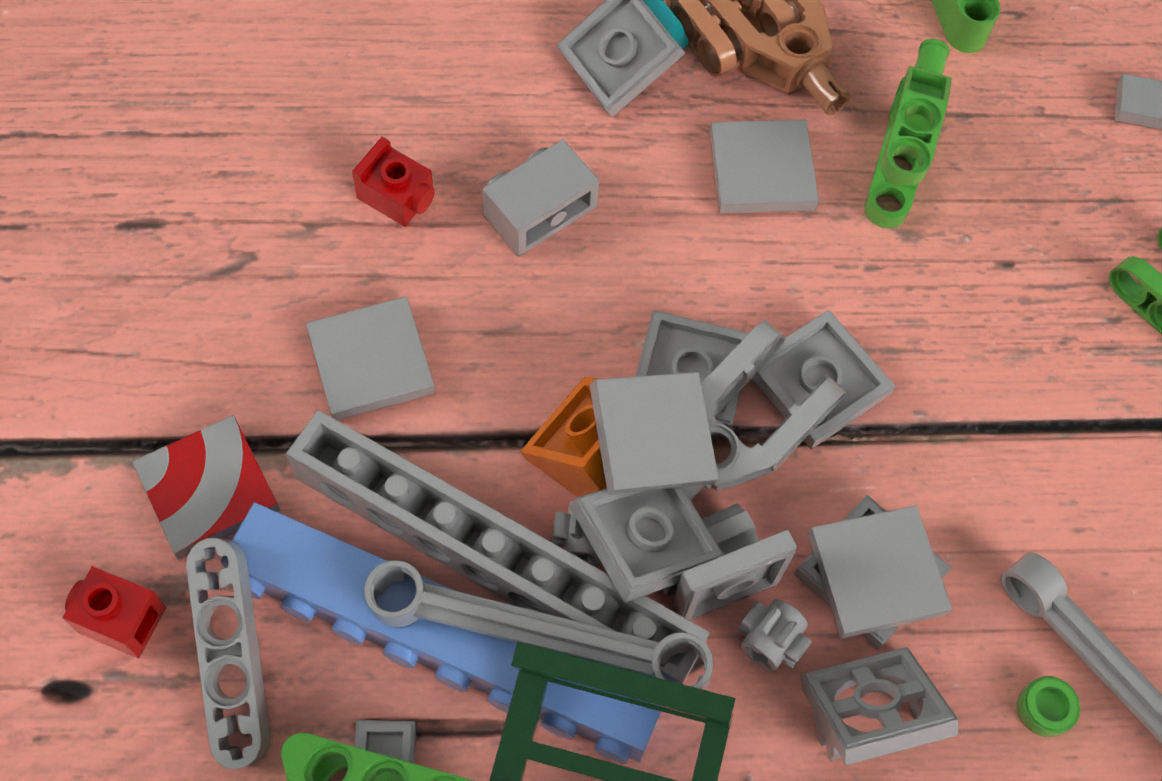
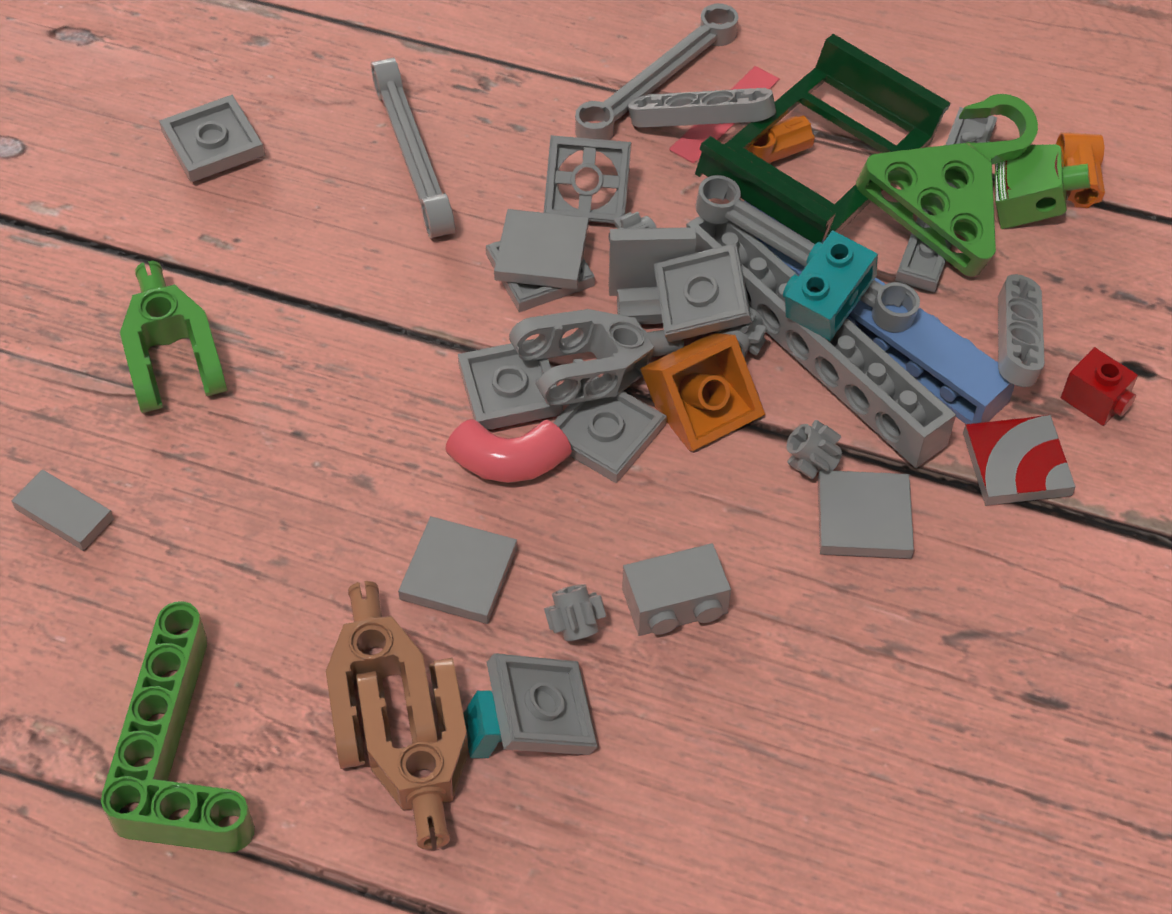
camera: 155 degrees left, 10 degrees down
(393, 183) = (807, 657): red brick -> none
(446, 398) = (814, 448): none -> light grey gear
(483, 549) = (830, 284): none -> teal brick
(628, 140) = (575, 612): none -> light grey gear
(653, 432) = (673, 337): light grey tile -> none
(772, 281) = (506, 458): none -> coral cylinder
(911, 133) = (300, 535): bright green piece -> none
(1048, 706) = (468, 165): bright green tile -> none

